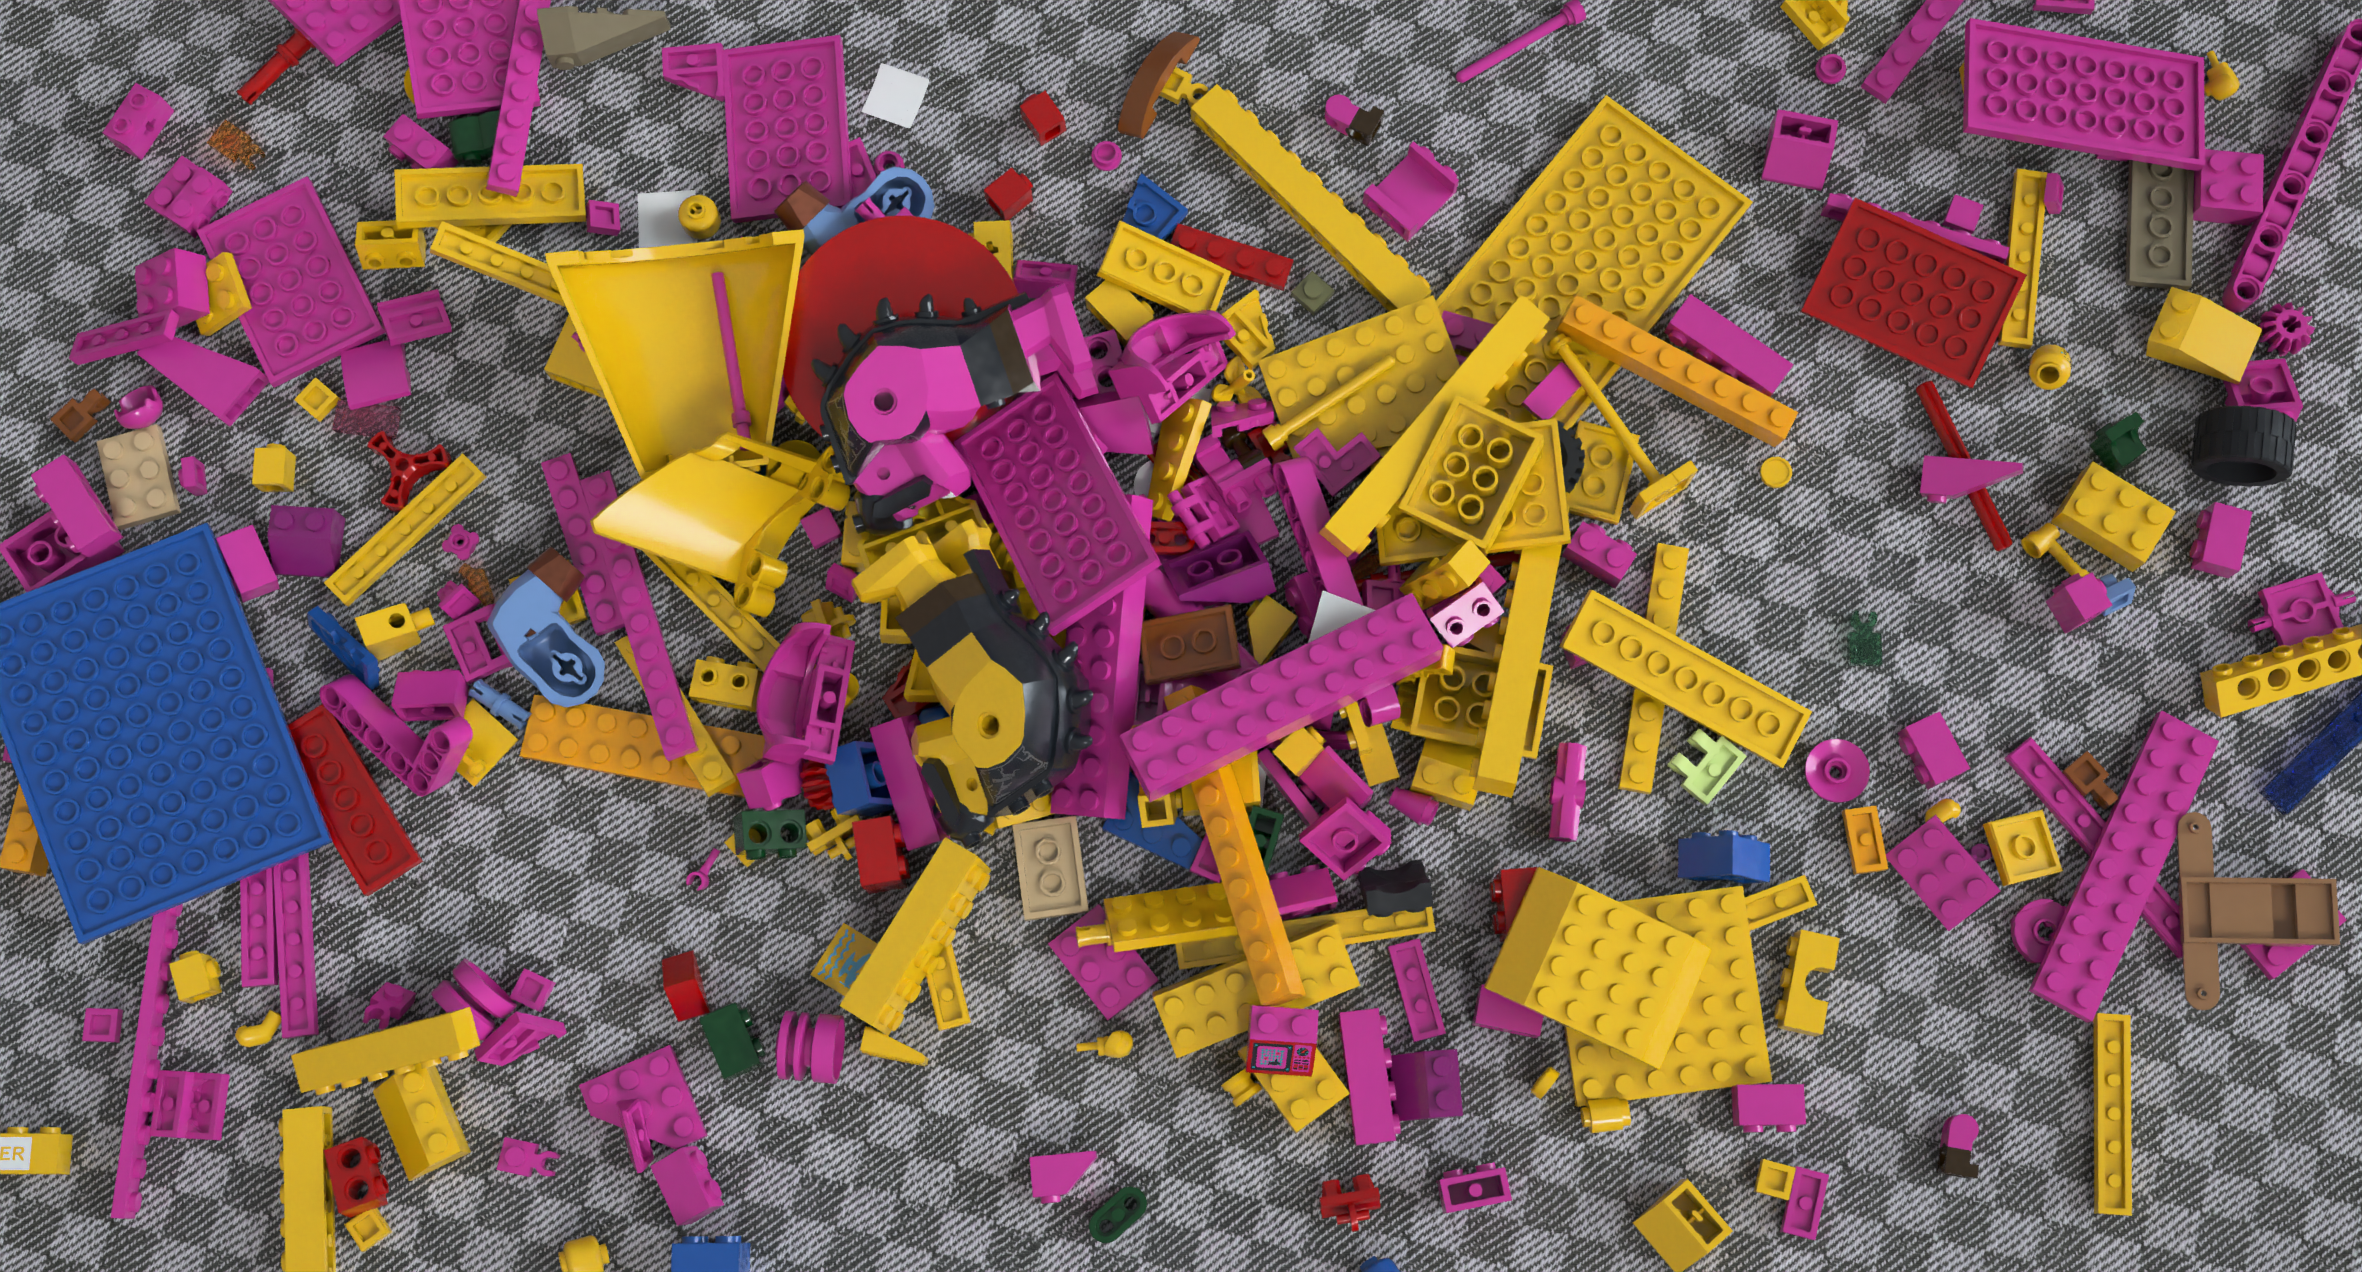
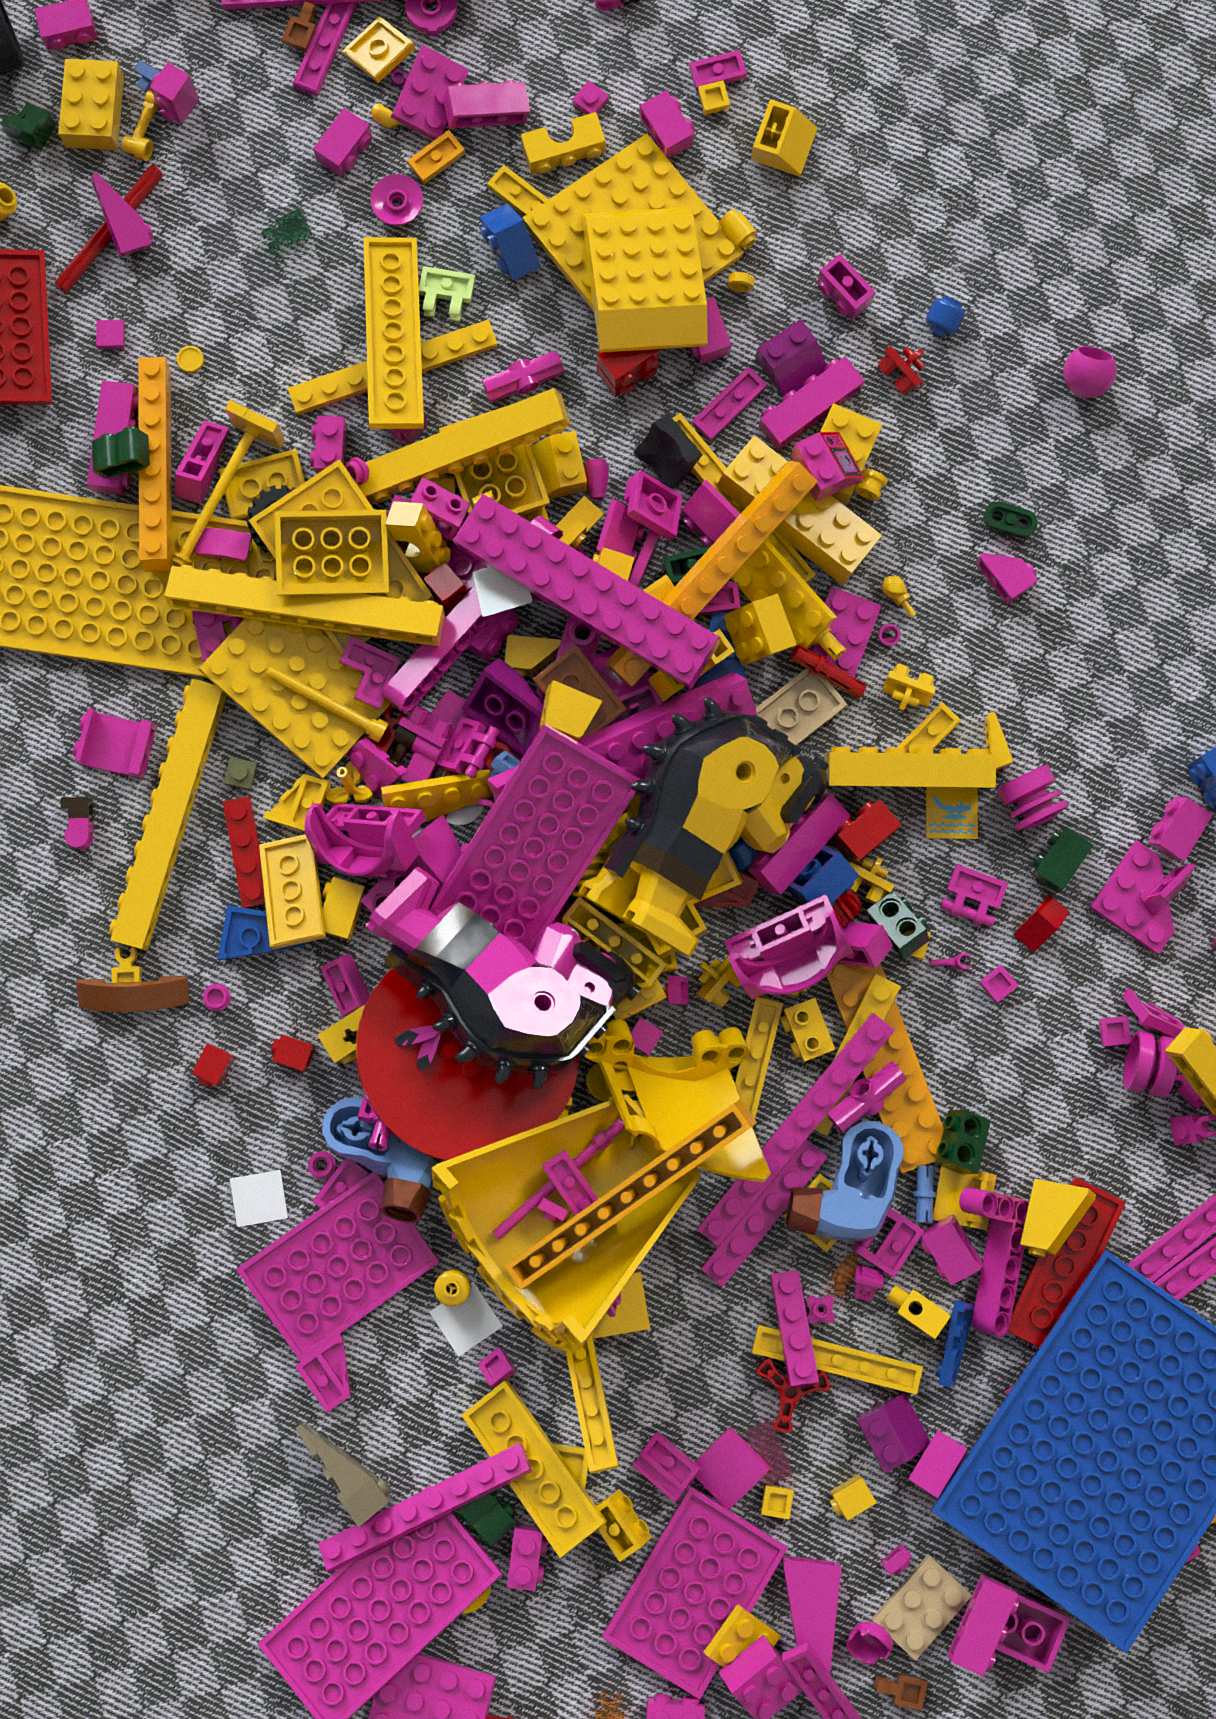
camera: 125 degrees left, 5 degrees up
(396, 810) = (1053, 1215): none -> yellow slope
(457, 503) = (794, 1329): none -> dark pink plate
(517, 773) = (968, 1143): none -> dark green brick
(623, 696) = (866, 1096): none -> dark pink piece
(652, 901) = (998, 983): none -> dark pink plate
(662, 401) = (631, 1194): none -> light orange brick
(703, 335) = (553, 1212): none -> dark pink plate
(706, 364) = (569, 1182): none -> dark pink plate
(761, 938) = (978, 888): none -> dark pink plate
(942, 294) = (418, 1035): none -> dark pink piece
(1015, 986) = (908, 689): none -> yellow hips
(1066, 1007) = (891, 640): none -> dark pink hinge
(1078, 911) = (819, 666): none -> red pin
(1150, 868) = (759, 630): none -> yellow brick
(1163, 535) = (503, 763): none -> medium blue tile
(1169, 611) = (568, 710): none -> yellow torso
(1380, 579) = (446, 585): none -> brick
(1550, 555) = (358, 470): none -> dark pink plate
(1656, 421) = (200, 462): none -> dark pink slope
(1700, 336) = (120, 453): none -> dark green brick
(1845, 407) = (110, 334): none -> dark pink tile
(1845, 1044) = (590, 99): none -> dark pink plate
(1895, 923) = (486, 104): none -> dark pink brick

